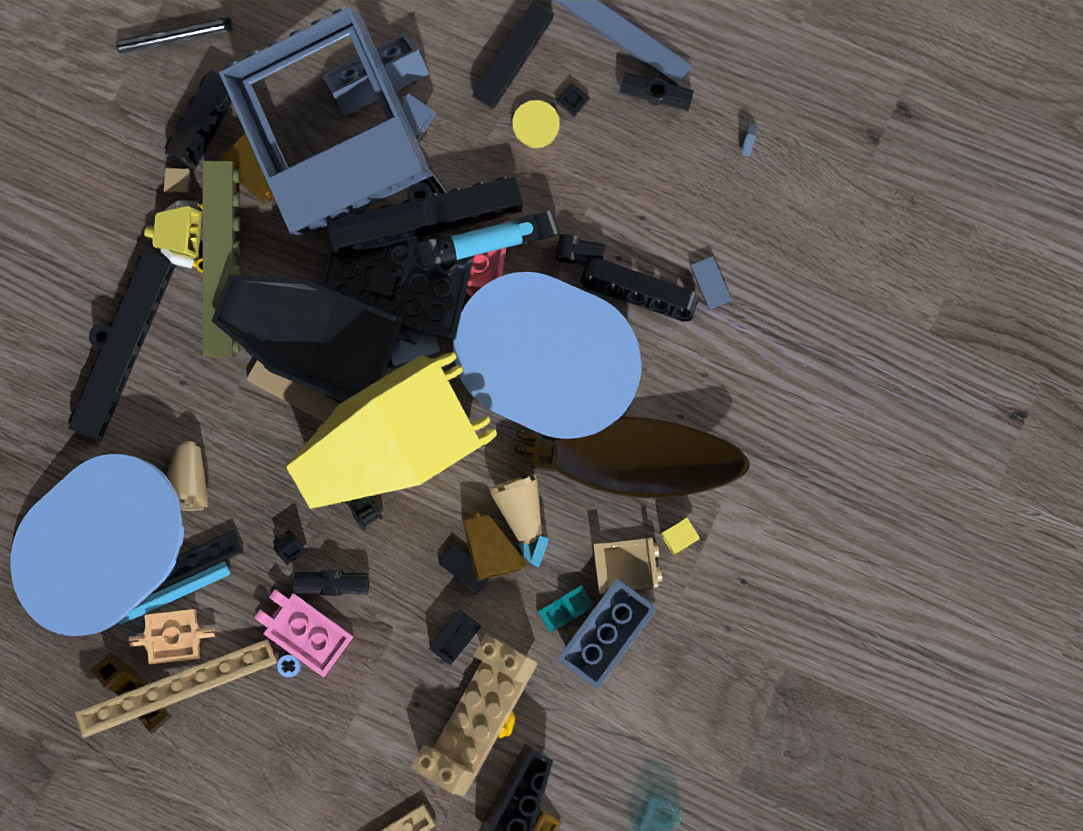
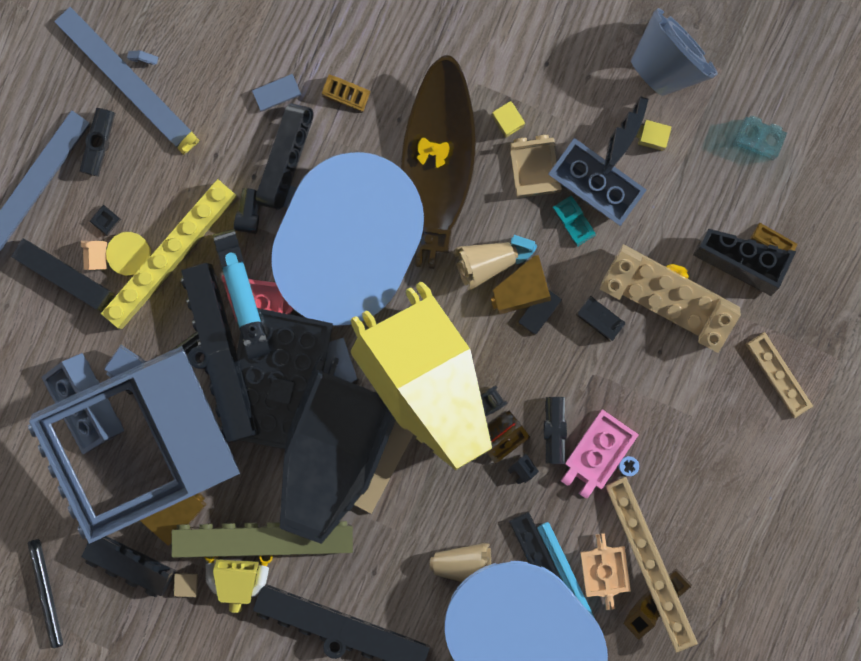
camera: 90 degrees left, 5 degrees up
(326, 526) = (505, 436): none -> dark brown panel
(533, 166) = (169, 254): none -> light yellow brick
(535, 87) = (94, 255): none -> light nougat tile
(645, 458) = (439, 150): none -> yellow piece
(656, 188) = (188, 143): none -> light yellow tile
(656, 663) = (624, 136): none -> black slope
(661, 700) = (653, 135): none -> light yellow brick
(710, 335) = (340, 82): none -> pearl gold slope
(727, 120) = (123, 76): none -> sand blue tile
(749, 720) = (670, 57): none -> sand blue cone

